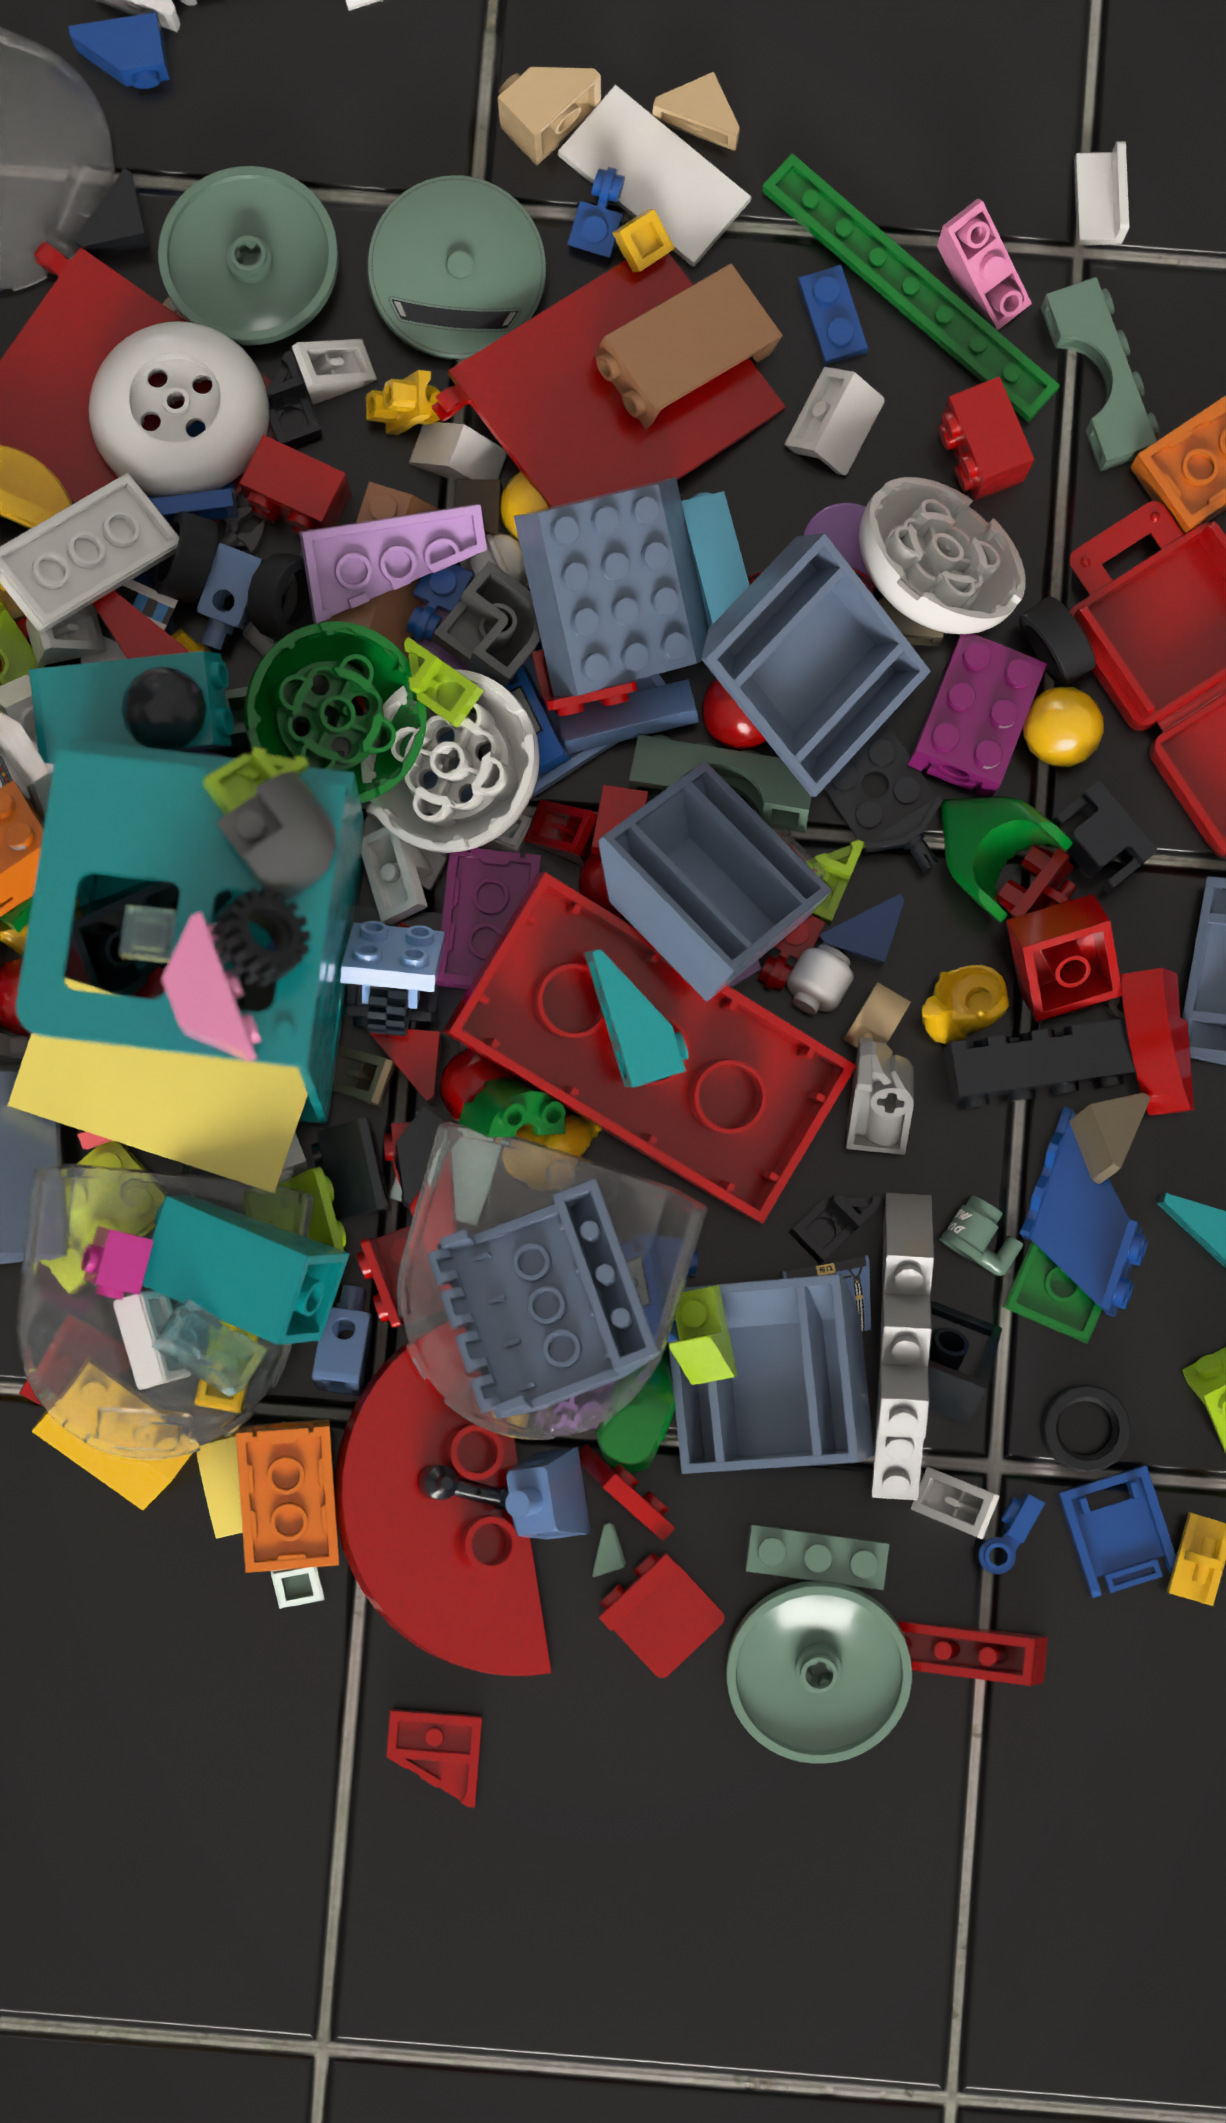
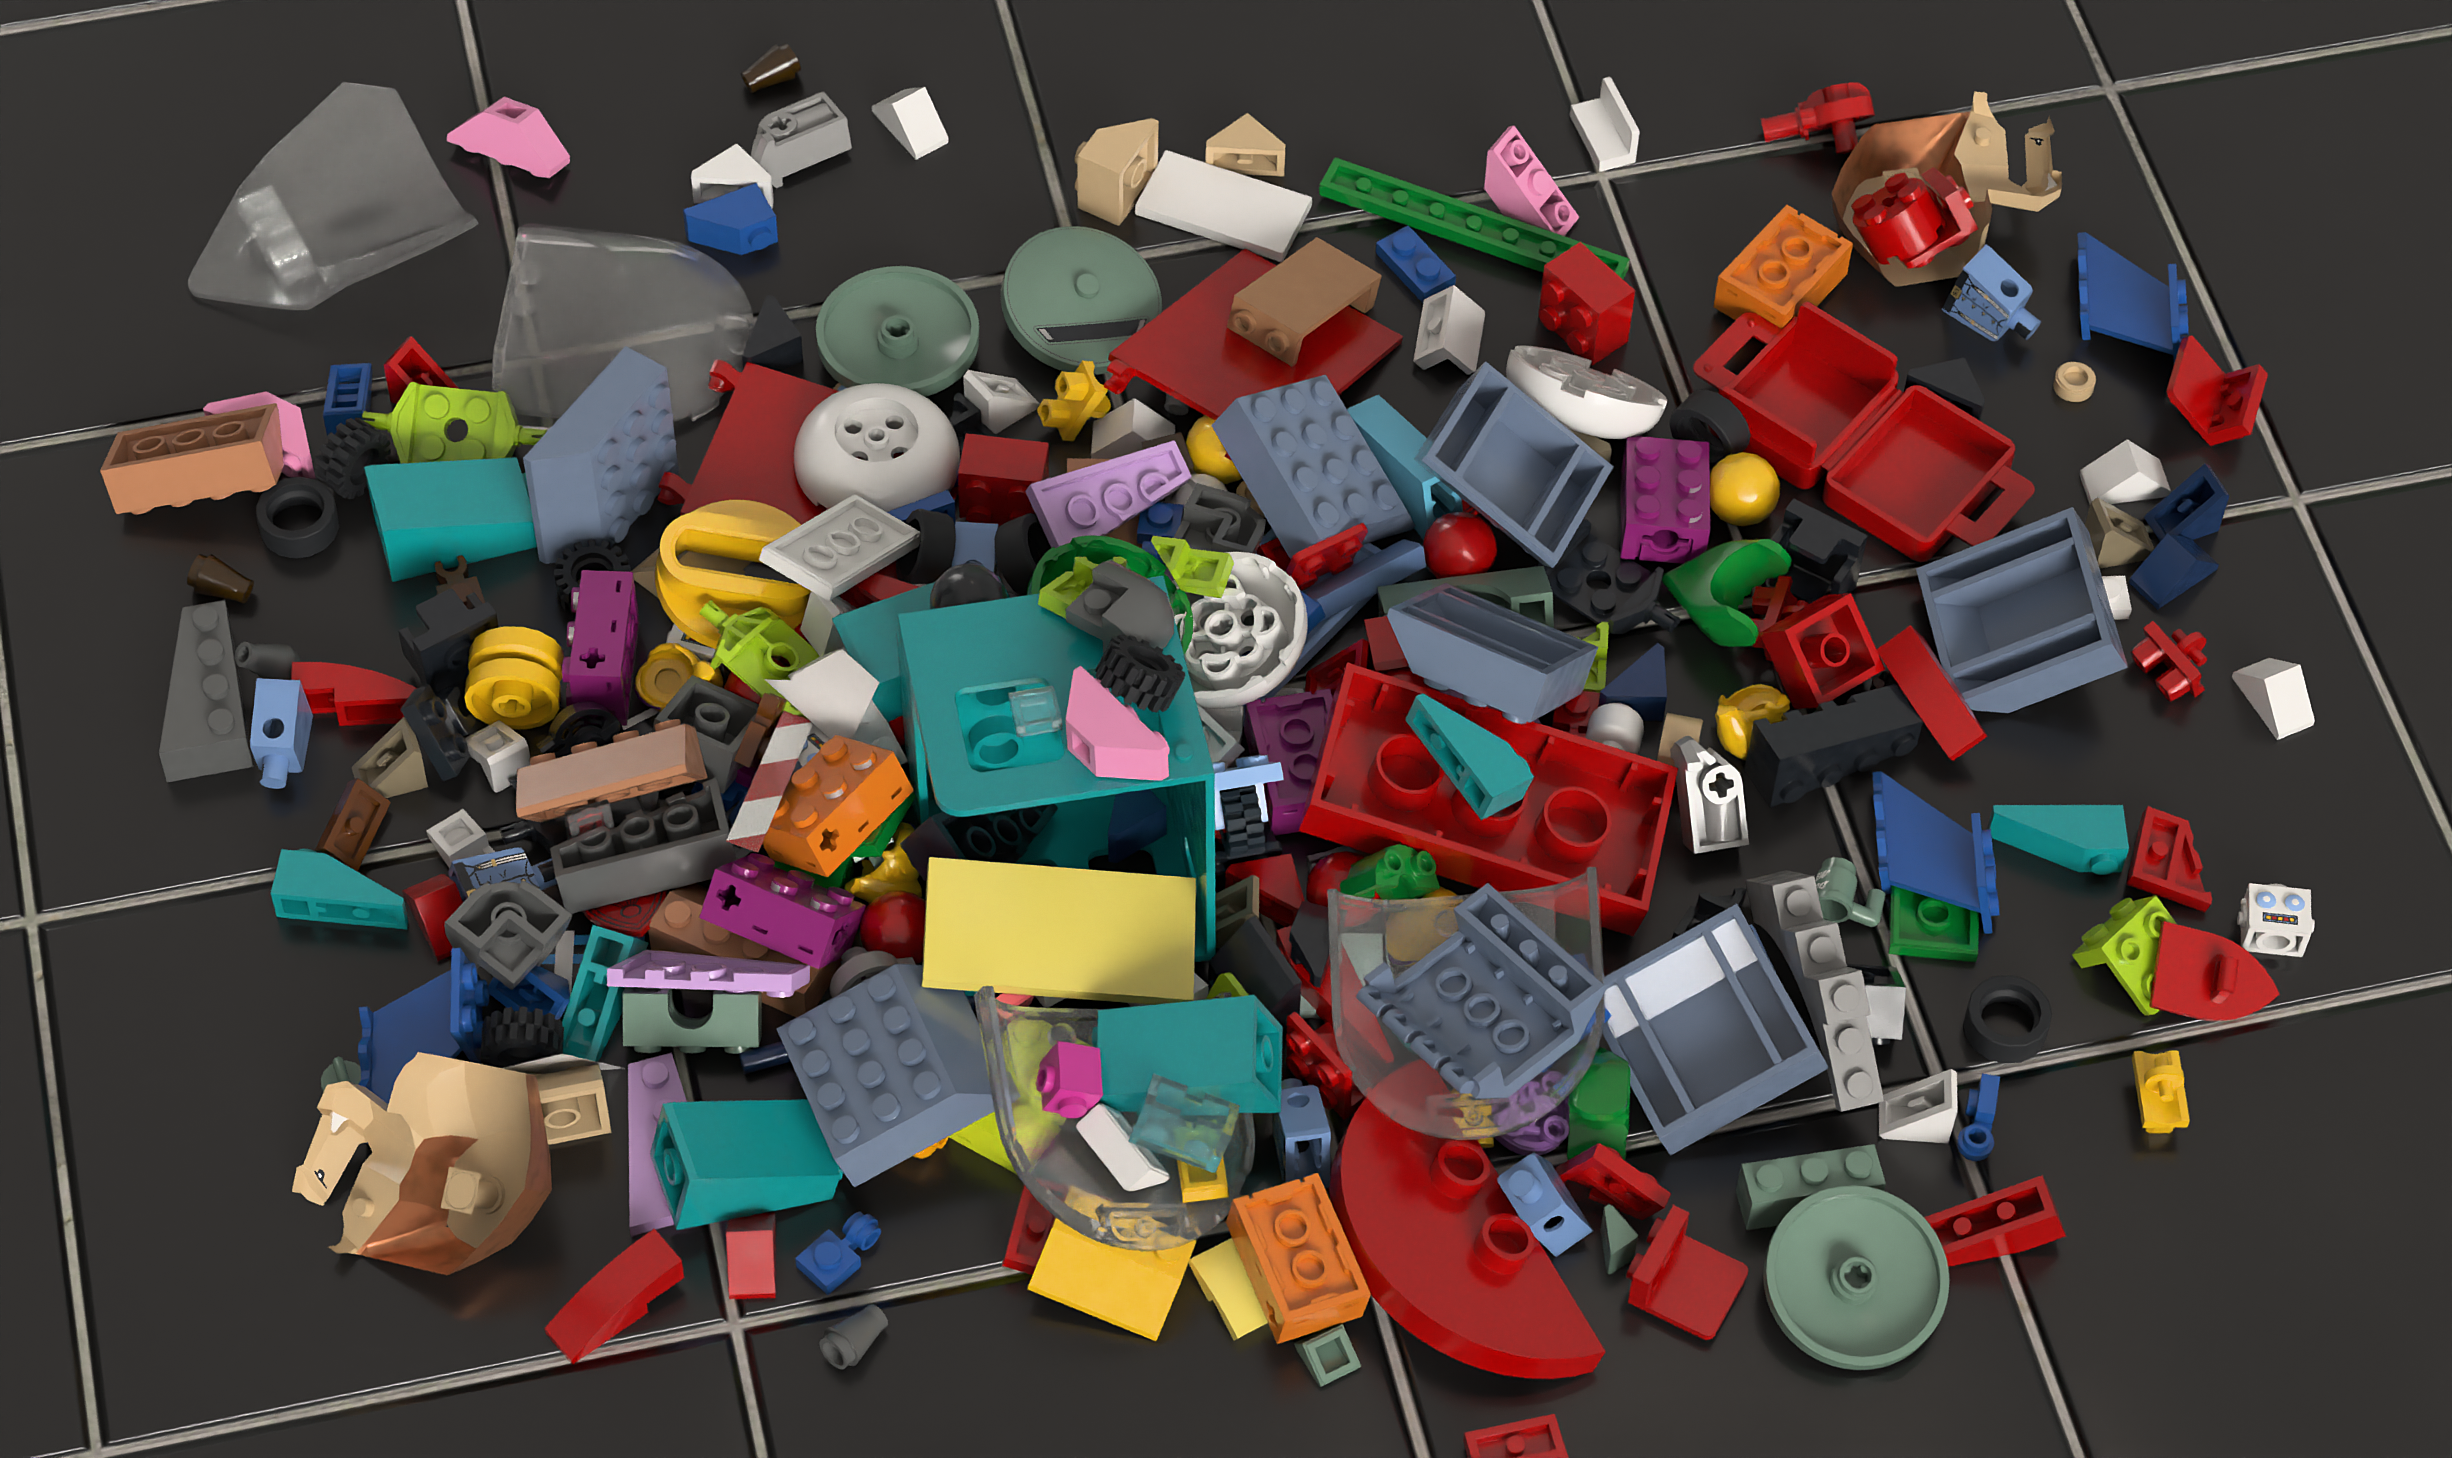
camera: 20 degrees left, 30 degrees down
(441, 1483) = (1441, 1195): black piece -> none
(594, 223) = (1189, 247): blue plate -> none
(643, 240) = (1233, 243): yellow tile -> none
(704, 1337) = (1636, 1008): lime slope -> none
(1083, 322) = (1630, 214): sand green arch -> none
(1107, 1131) = (1918, 770): dark tan slope -> none
(1119, 1537) = (2081, 1106): blue container -> none

